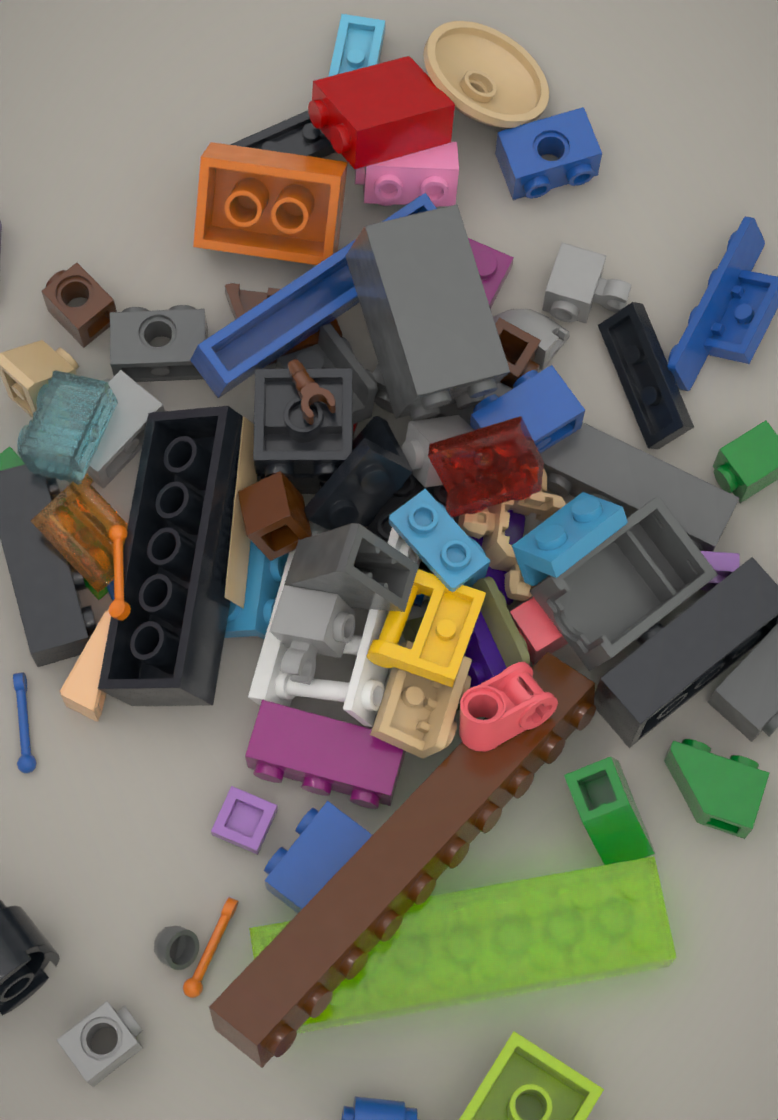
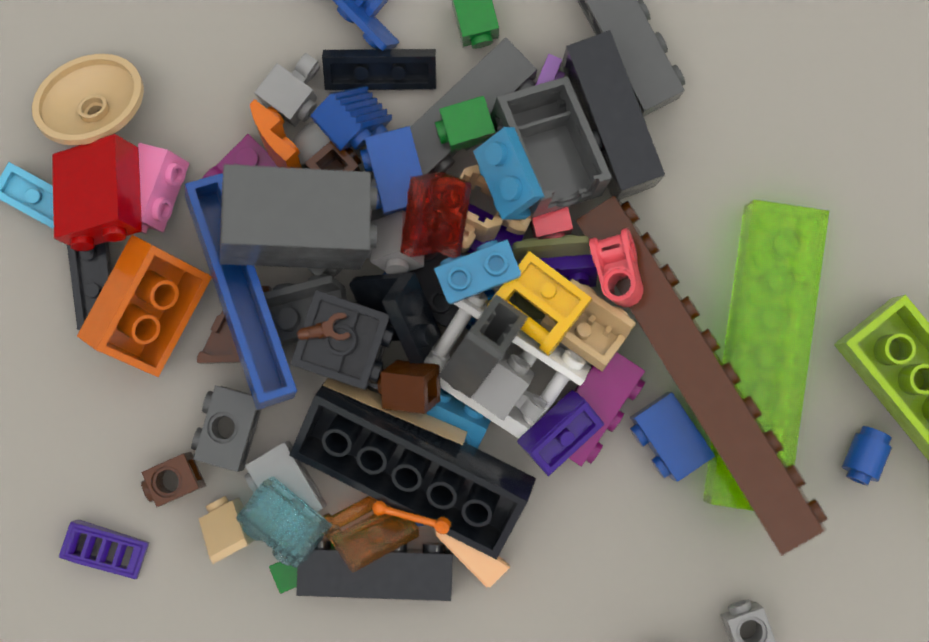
camera: 65 degrees left, 15 degrees up
(26, 762) = (522, 624): blue hinge -> none
(176, 947) = (697, 558): dark grey hinge -> none
(193, 986) = (725, 553): orange hinge -> none
(244, 820) = (621, 480): medium lavender plate -> none
(277, 714) = (560, 432): none -> dark purple slope
(520, 278) = (271, 130): none -> orange slope
(562, 135) = (161, 55): blue brick -> none
(576, 351) = (350, 117): none -> blue brick
(609, 812) = (703, 218): green slope -> none
(614, 475) = (465, 124): none -> green brick
(717, 789) = (713, 136): green slope -> none

